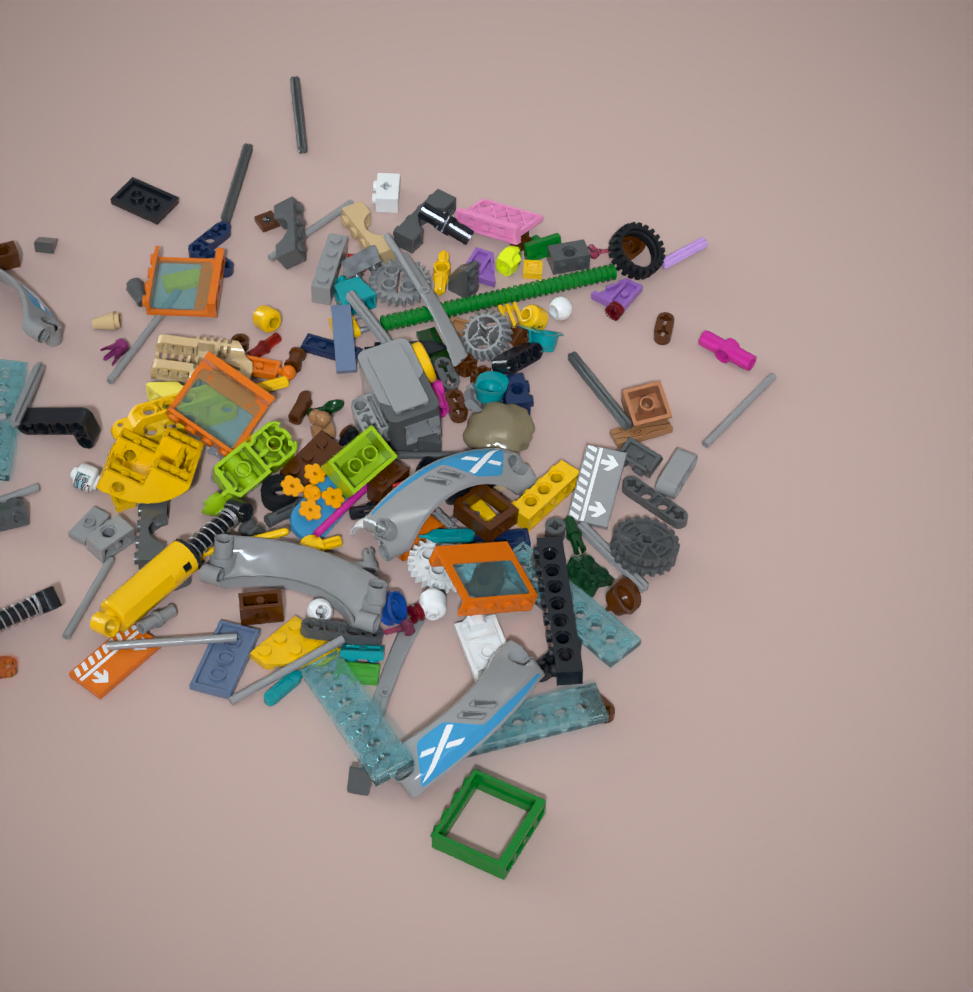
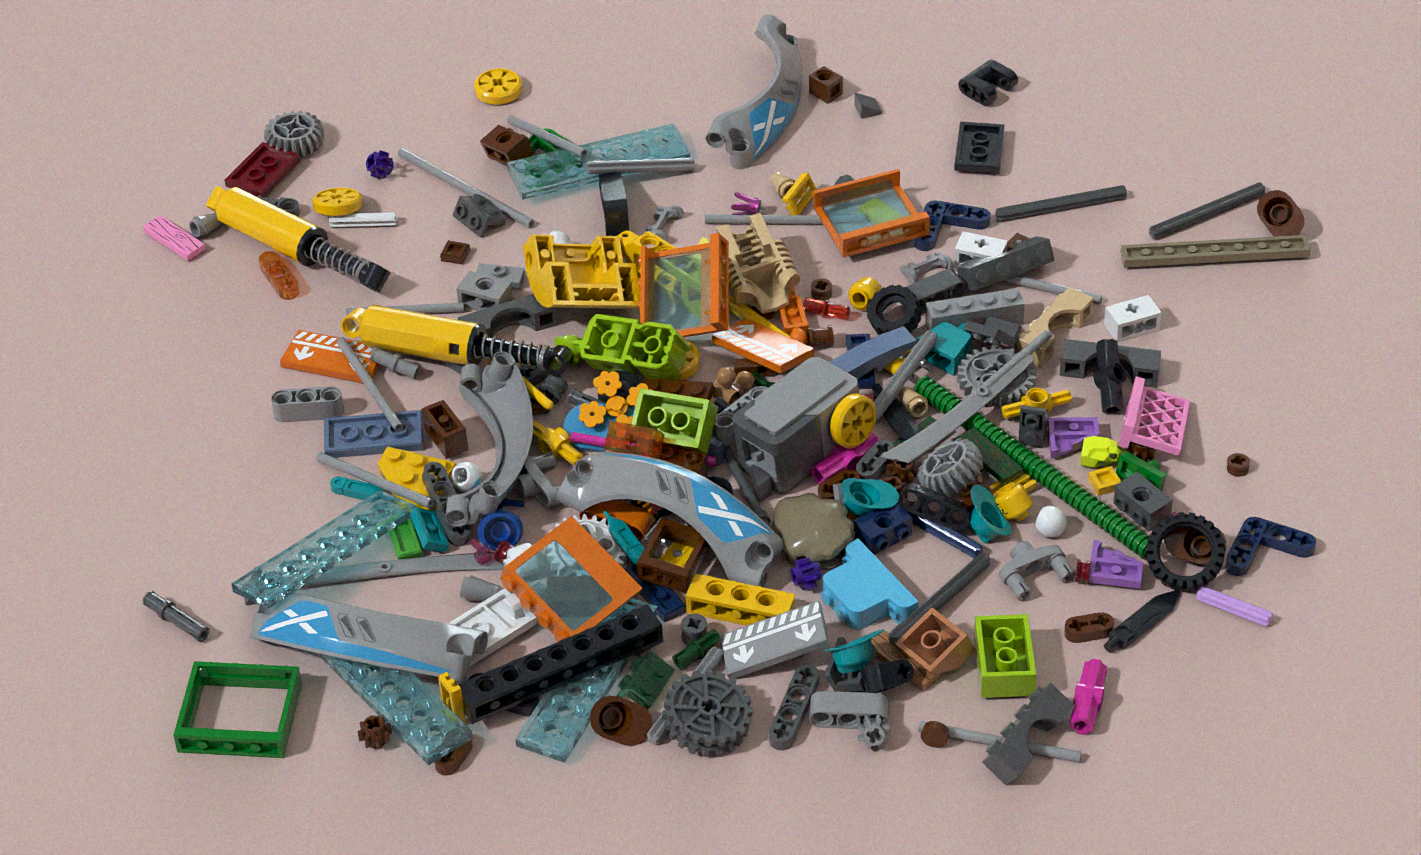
camera: 70 degrees right, 5 degrees down
(38, 545) = (455, 252): none -> reddish brown tile
(65, 168) = (977, 85): none -> black connector
(103, 416) = (662, 216): none -> light grey piece
(128, 315) = (798, 191): none -> yellow tile
(168, 690) = (307, 404): none -> light grey beam
(250, 270) = (932, 261): none -> light grey piece
(263, 242) = (975, 246): none -> white brick
(288, 283) = (938, 287): none -> dark grey beam
(295, 321) = (888, 296): none -> black tyre
(295, 390) = (763, 345): none -> orange tile
(339, 79) = (1280, 214): none -> reddish brown piece
(344, 127) = (1215, 251): none -> dark tan plate
(353, 844) = (168, 611): none -> dark grey pin
(358, 494) = (622, 435): none -> clear orange brick
(399, 332) = (913, 402): none -> tan cone
(442, 642) = (477, 589): none -> light grey cone
(462, 315) = (995, 460): none -> dark green tile
(537, 450) = (806, 573): none -> dark purple gear
(543, 364) = (948, 535): none -> dark blue axle
(557, 744) = (374, 732): none -> reddish brown gear
(559, 675) = (451, 695): none -> yellow tile
(561, 203) = (1238, 470): none -> reddish brown bush
(569, 425) = (865, 590): none -> medium azure brick
(590, 334) = (1029, 561): none -> light grey connector
(624, 213) = (1264, 536): none -> dark blue beam
(637, 441) = (853, 654): none -> teal piece
(663, 441) = (886, 675): none -> black piece
(670, 301) = (1142, 620): none -> black piece
(680, 374) = (1004, 655): none -> lime brick
(705, 466) = (877, 738): none -> light grey gear
(721, 437) = (935, 734): none -> reddish brown tile
(760, 403) = (1011, 754): none -> dark grey arch

